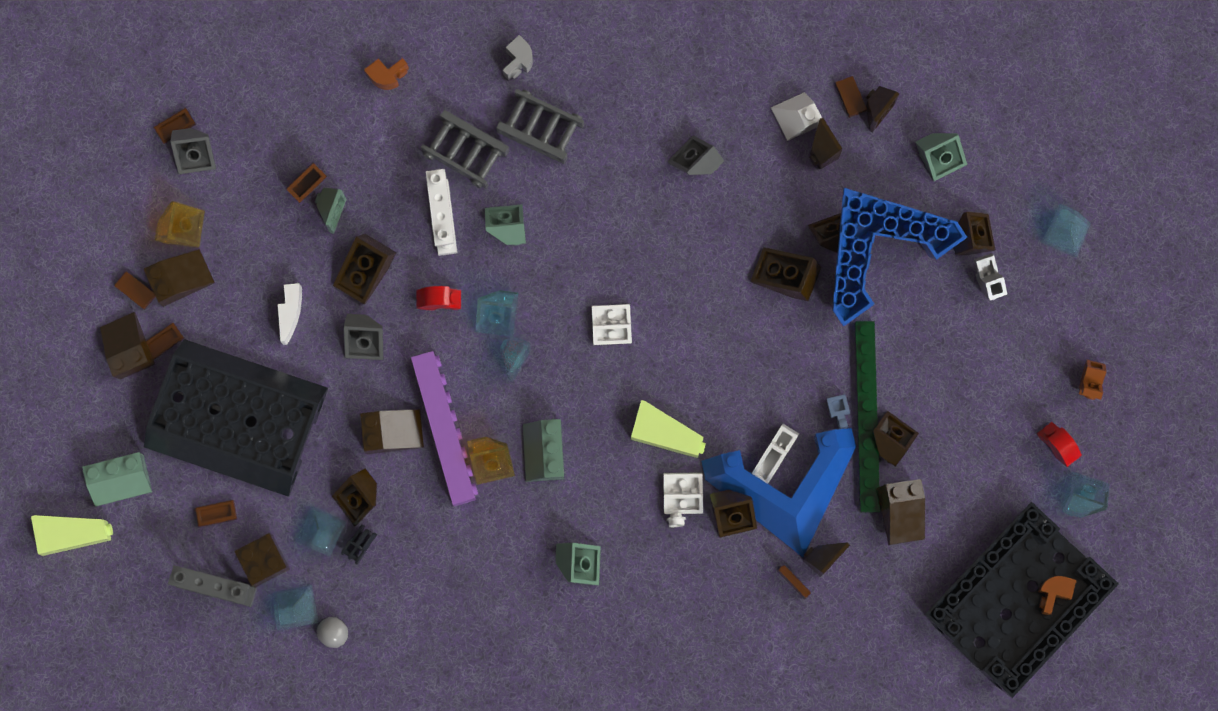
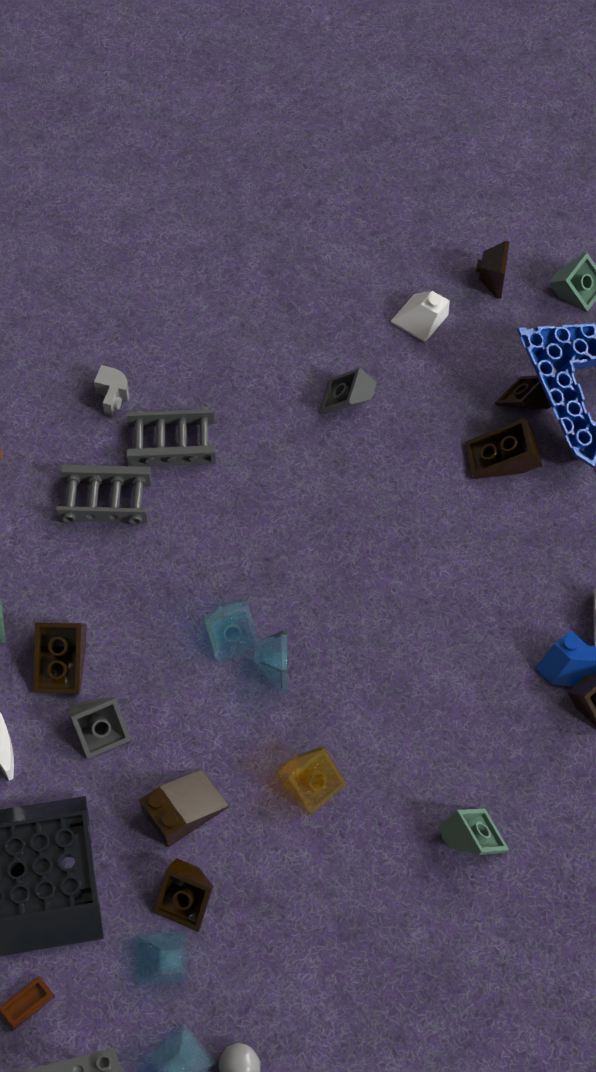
camera: 30 degrees left, 20 degrees down
(262, 560) = (111, 1022): dark brown brick -> none
(358, 545) = (215, 948): black arm -> none
(438, 297) = (156, 643): red brick -> none
(441, 212) = (115, 557): white fence -> none
(443, 428) = (242, 774): medium lavender brick -> none
(506, 224) = (192, 539): sand green slope -> none
(543, 450) = (364, 739): sand green slope -> none
(611, 324) = (357, 584): white slope -> none
(663, 431) = (479, 657): yellowish green slope -> none
(676, 520) = (549, 738): white plate -> none
(683, 493) = (537, 708): white slope -> none
(825, 146) = (465, 322): dark brown slope -> none
(850, 96) = (460, 278): reddish brown tile -> none

